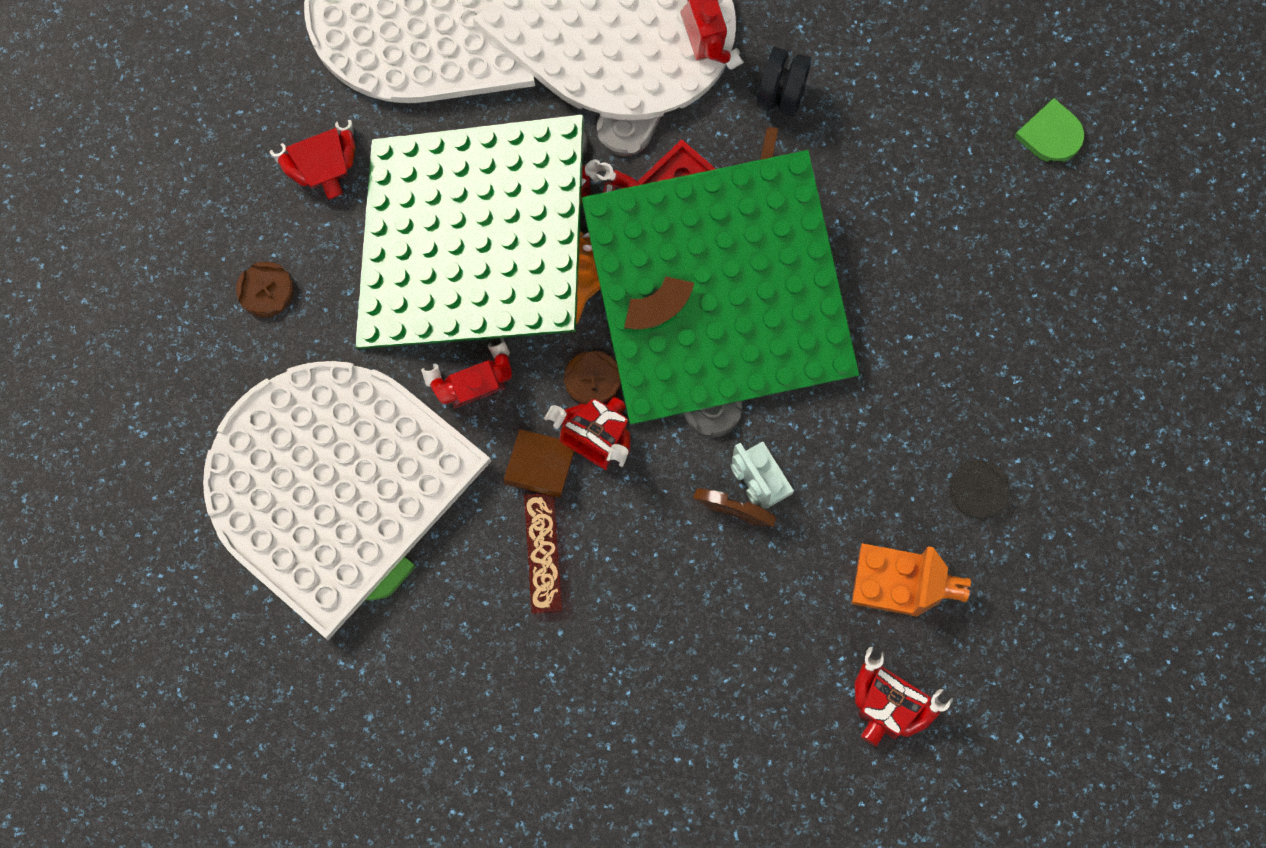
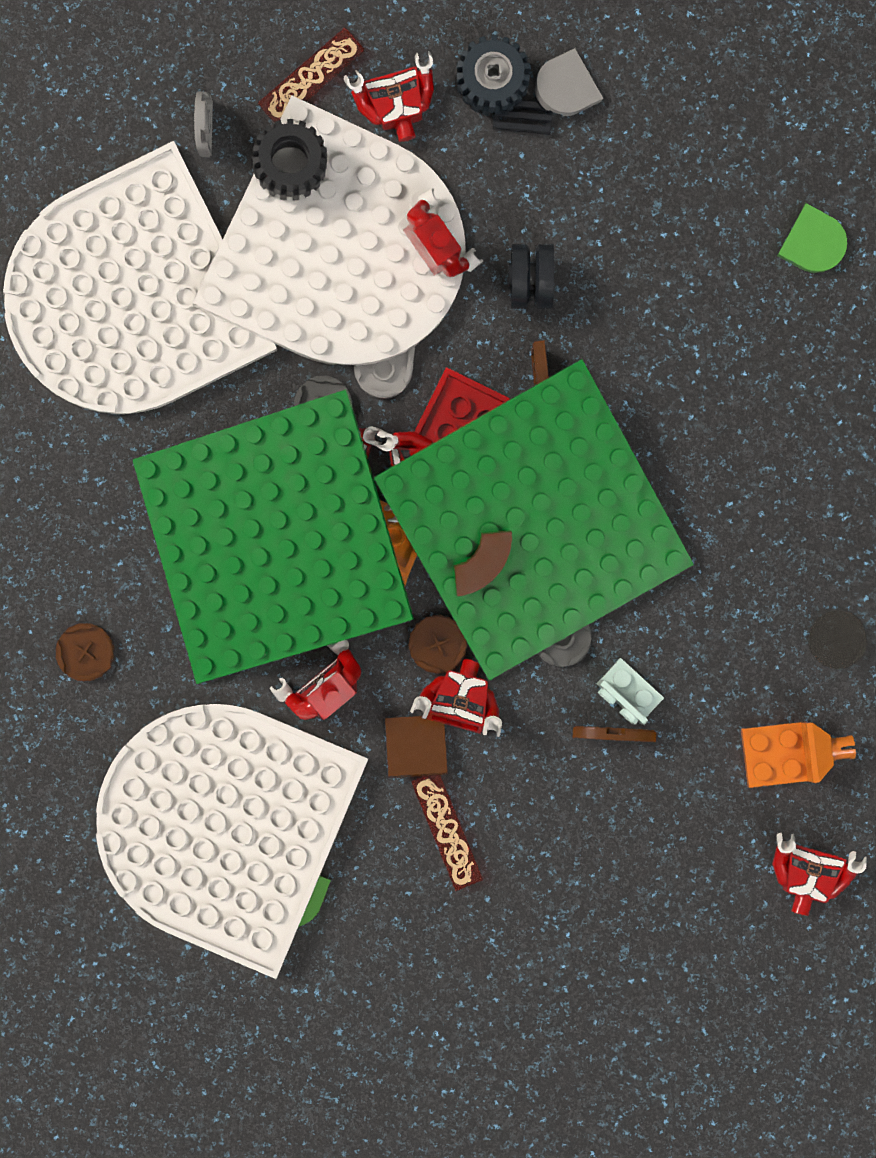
camera: 15 degrees left, 15 degrees up
(320, 159) = (91, 502): red torso -> none

